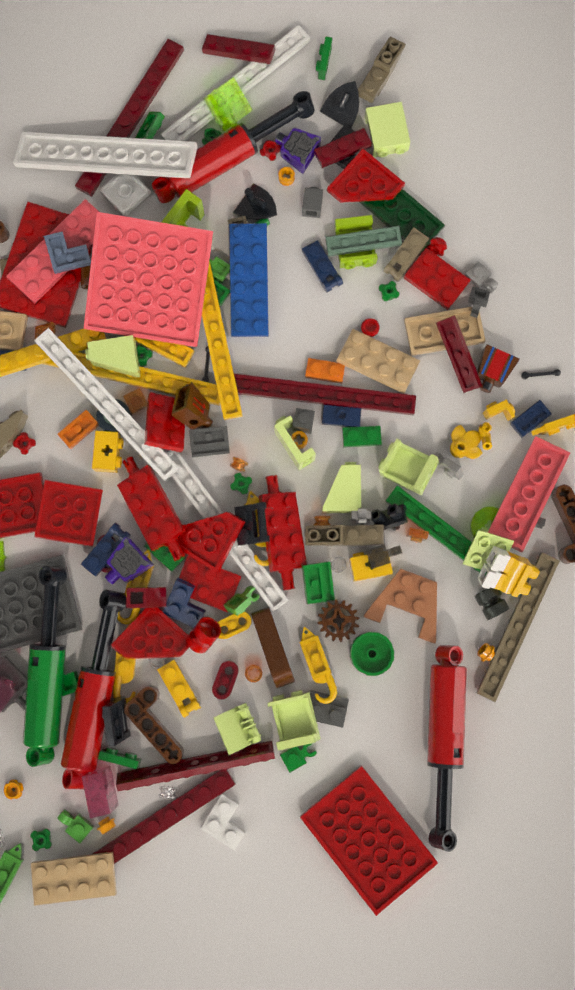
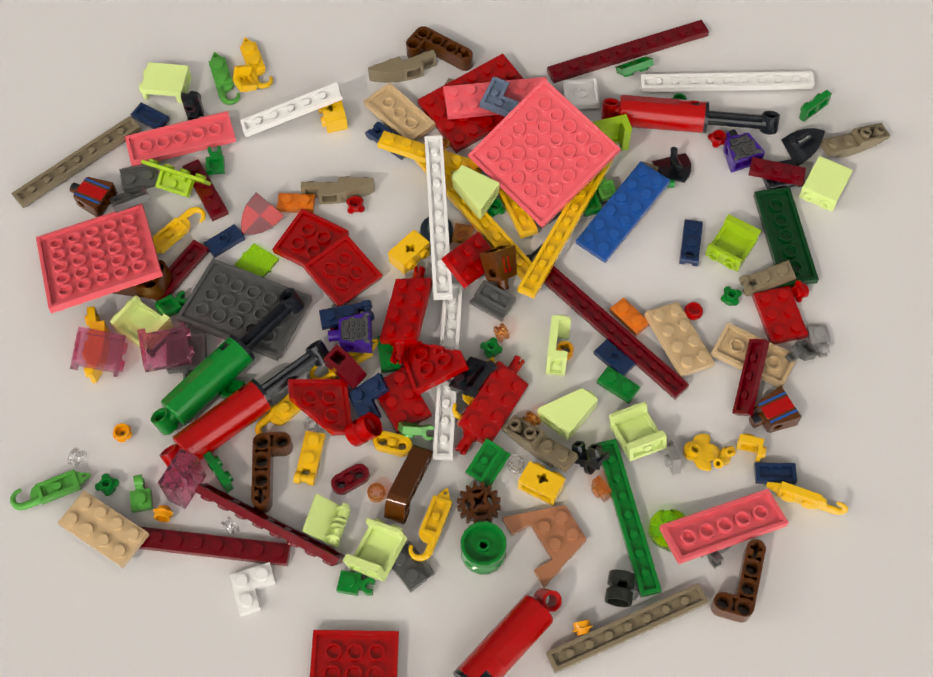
camera: 40 degrees right, 20 degrees down
(78, 429) = (402, 222): orange plate -> none
(106, 154) = (588, 59): white plate -> none
(115, 721) = (240, 438): black plate -> none
(228, 104) = (710, 85): clear neon green plate -> none
(238, 49) = (750, 58): dark red plate -> none
(285, 181) = (711, 166): light orange bush -> none
(303, 420) = (580, 336): dark grey brick -> none
(312, 202) = (720, 193): dark grey brick -> none
(361, 516) = (566, 437): light grey plate -> none
(363, 241) = (739, 245): sand green tile -> none
(365, 181) = (776, 203): red plate -> none
(380, 556) = (555, 476): clear smoke plate -> none
(482, 547) = (648, 539): yellowish green hinge -> none
(507, 572) = (651, 567): hips -> none
(525, 375) = (799, 439): black hinge -> none

